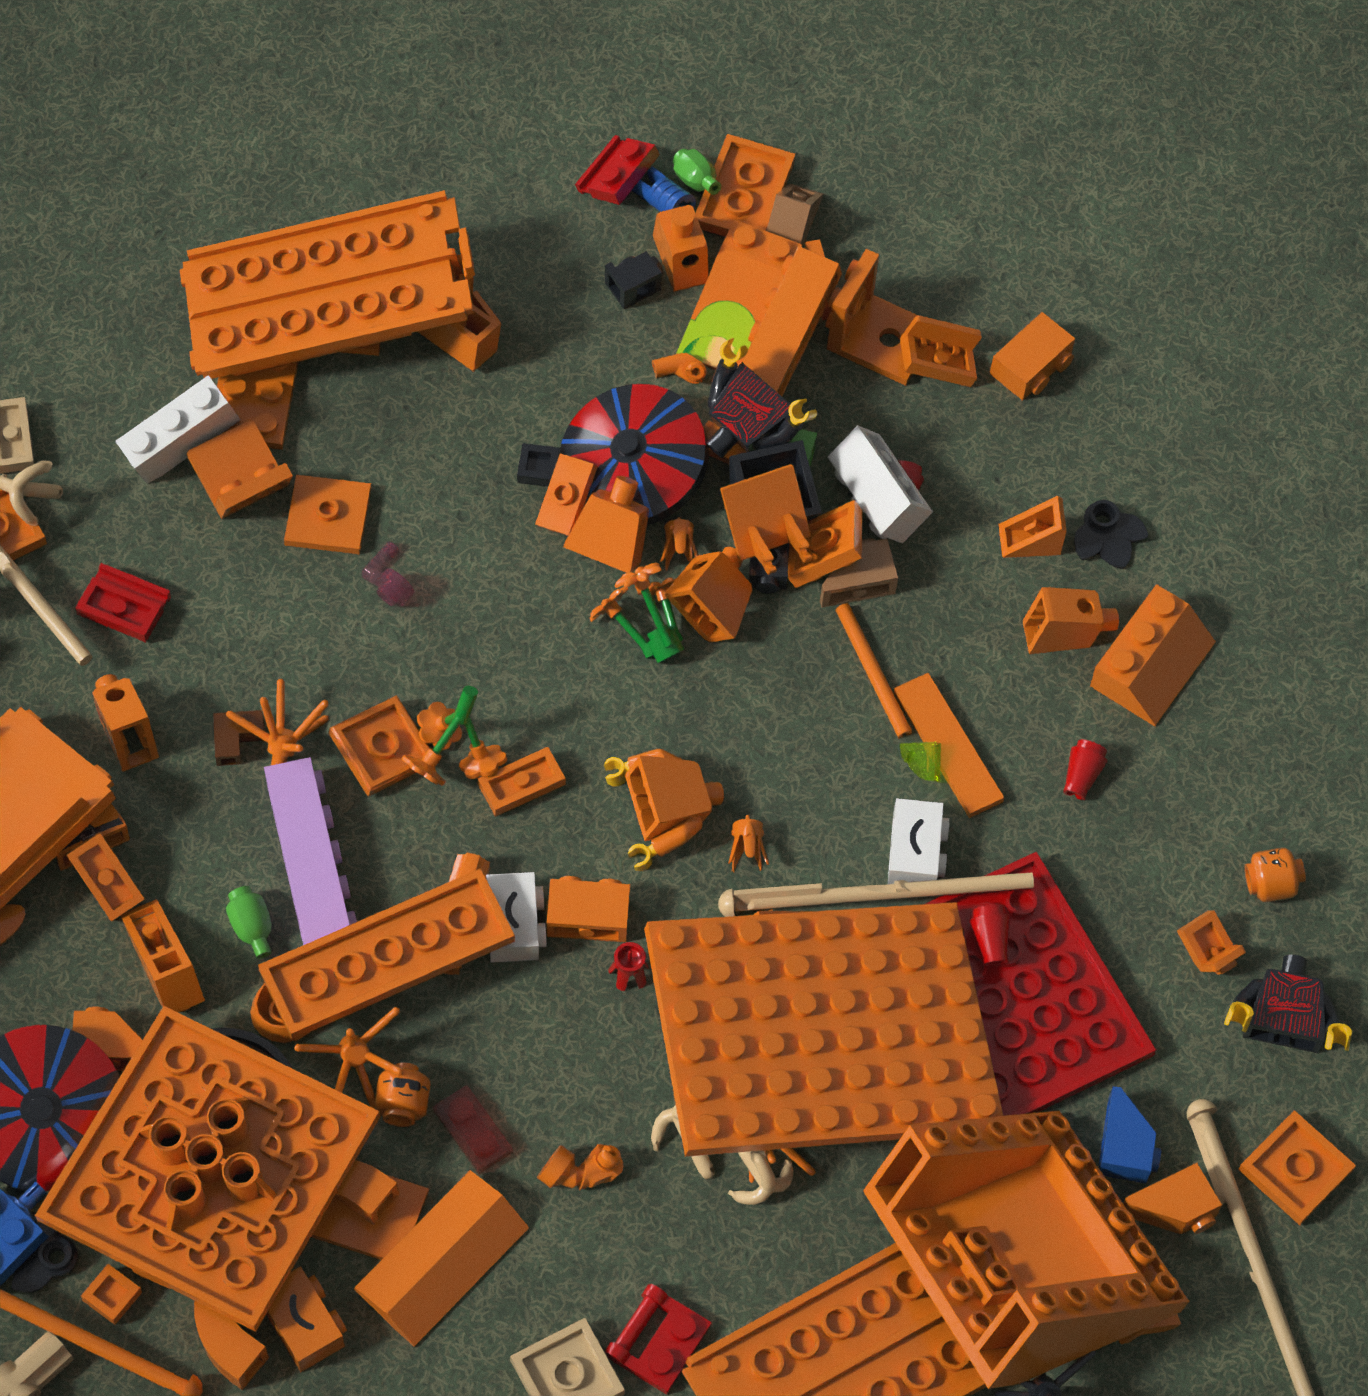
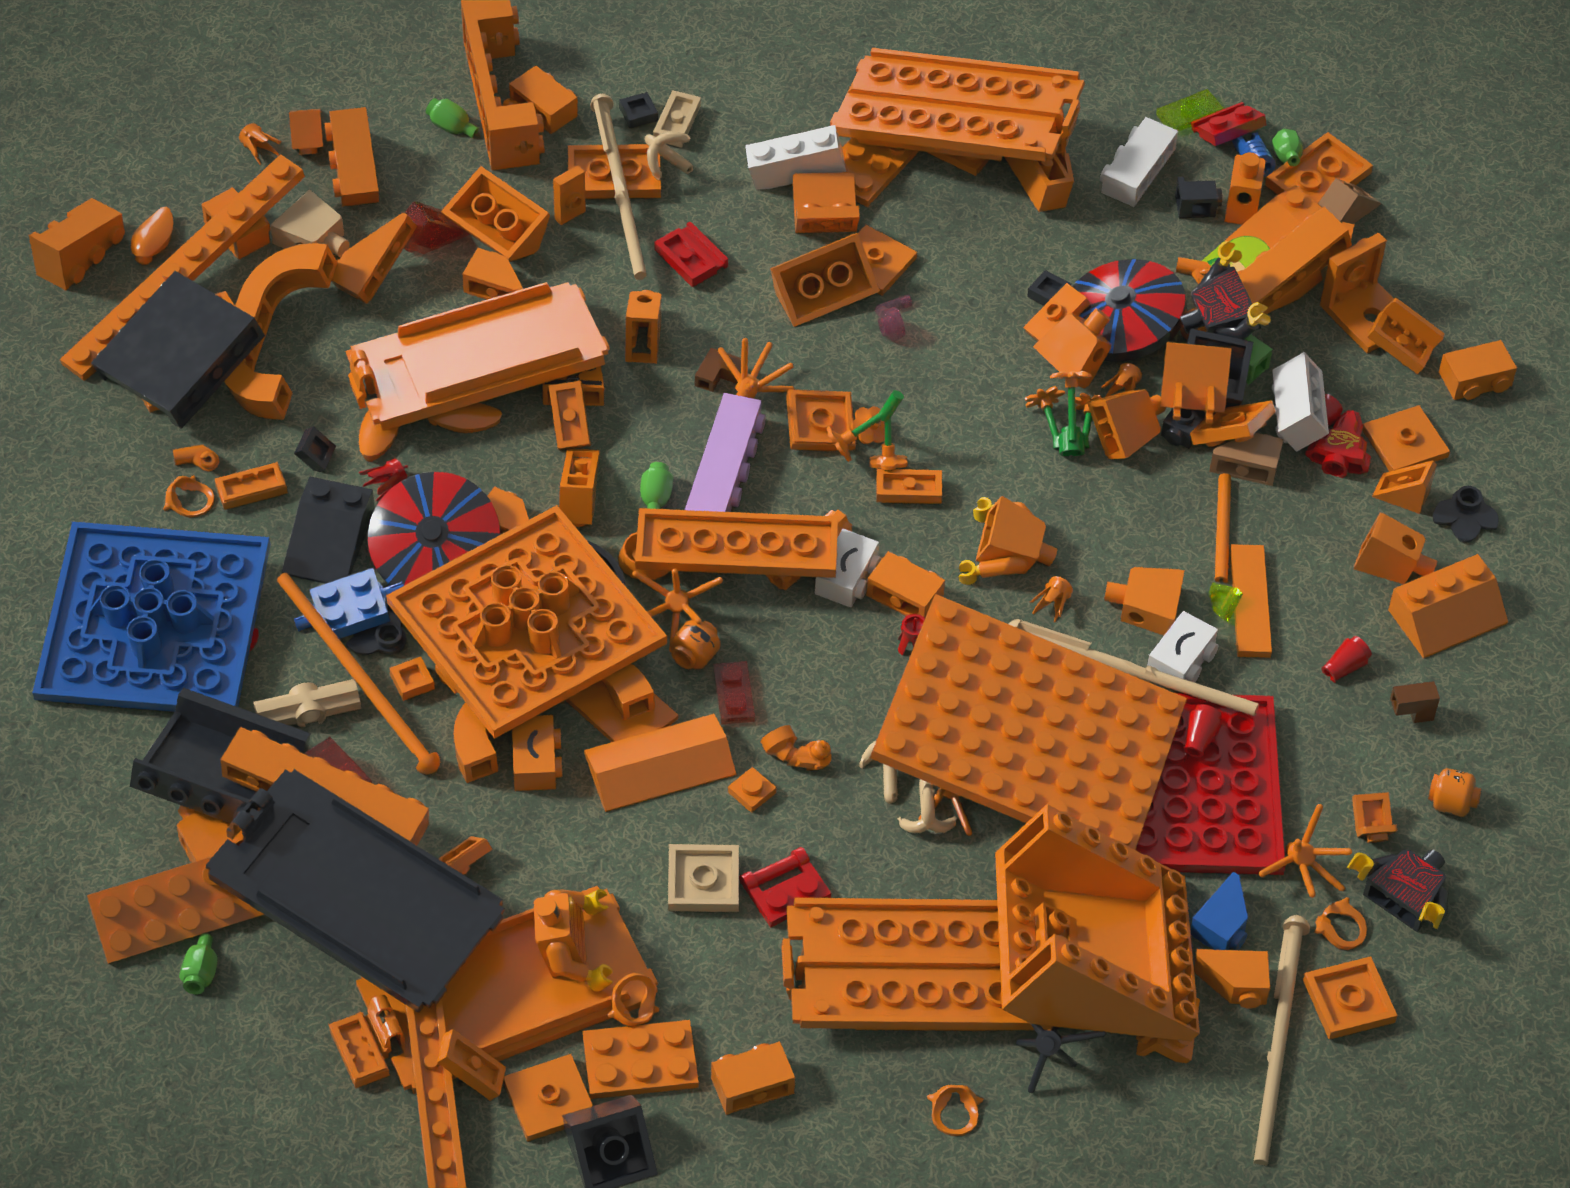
camera: 30 degrees right, 10 degrees down
(295, 571) = (824, 280): none -> orange slope
(547, 260) = (1138, 161): none -> white brick
(557, 1239) = (751, 789): none -> orange plate
(564, 170) = (1184, 111): none -> clear neon green plate
(848, 796) = (1148, 598): none -> orange torso
(951, 516) = (1343, 448): none -> red rock
(1001, 473) = (1405, 439): none -> orange plate
(1168, 1026) = (1304, 855): none -> orange plant
(1182, 787) = (1416, 699): none -> reddish brown piece
(1228, 1097) = (1324, 925): none -> orange piece

